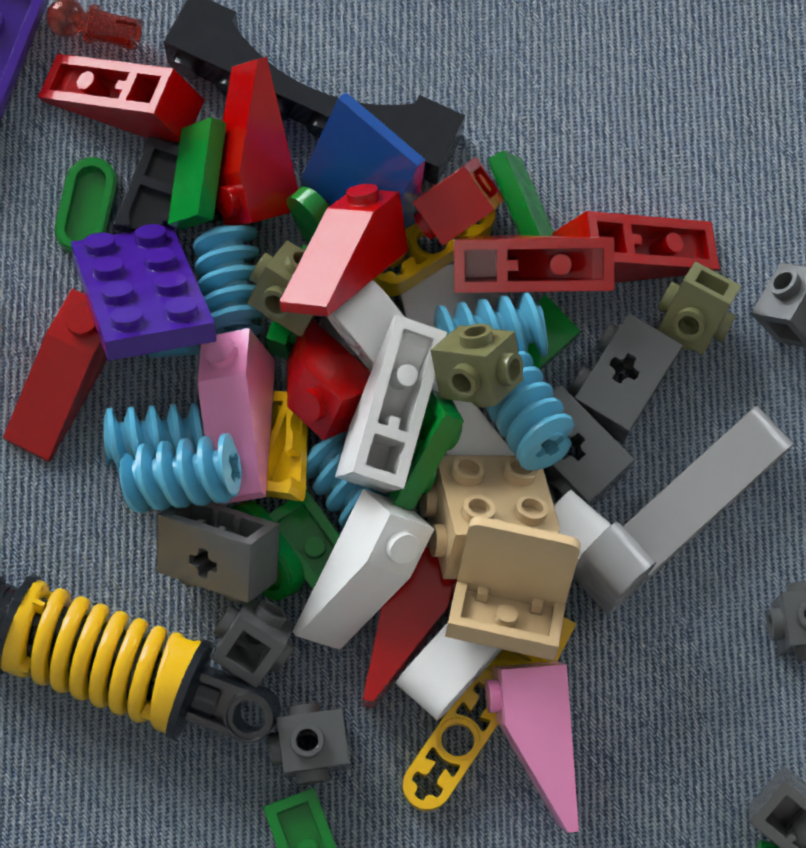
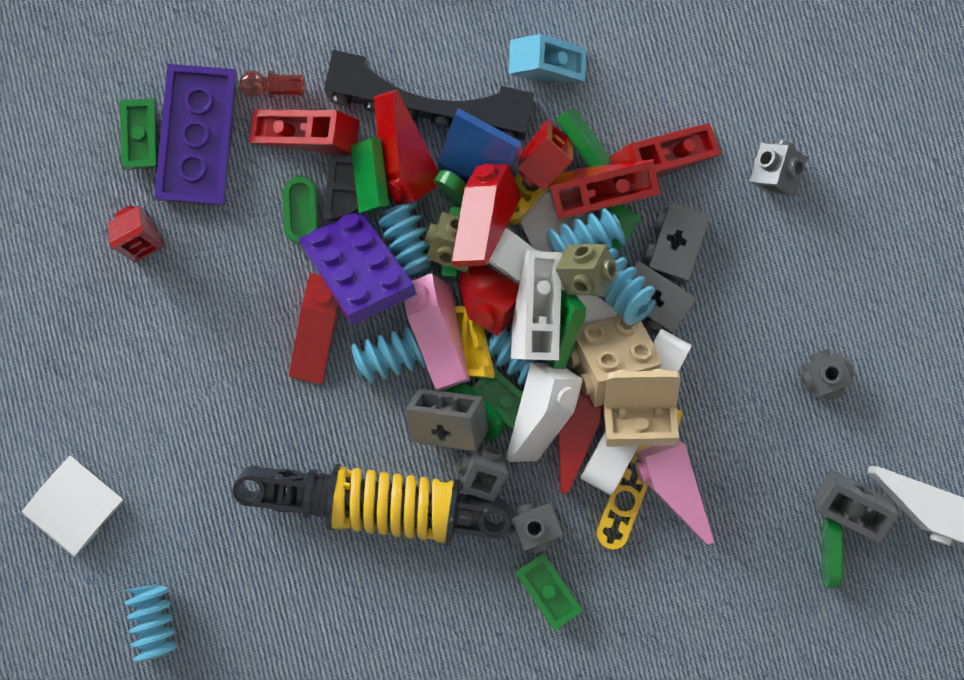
camera: 10 degrees left, 10 degrees up
(181, 477) = (414, 383): medium azure piece -> none
(496, 78) = (547, 59): none -> medium azure slope
(633, 553) = (705, 364): light grey beam -> none
(698, 308) = (715, 187): olive brick -> none

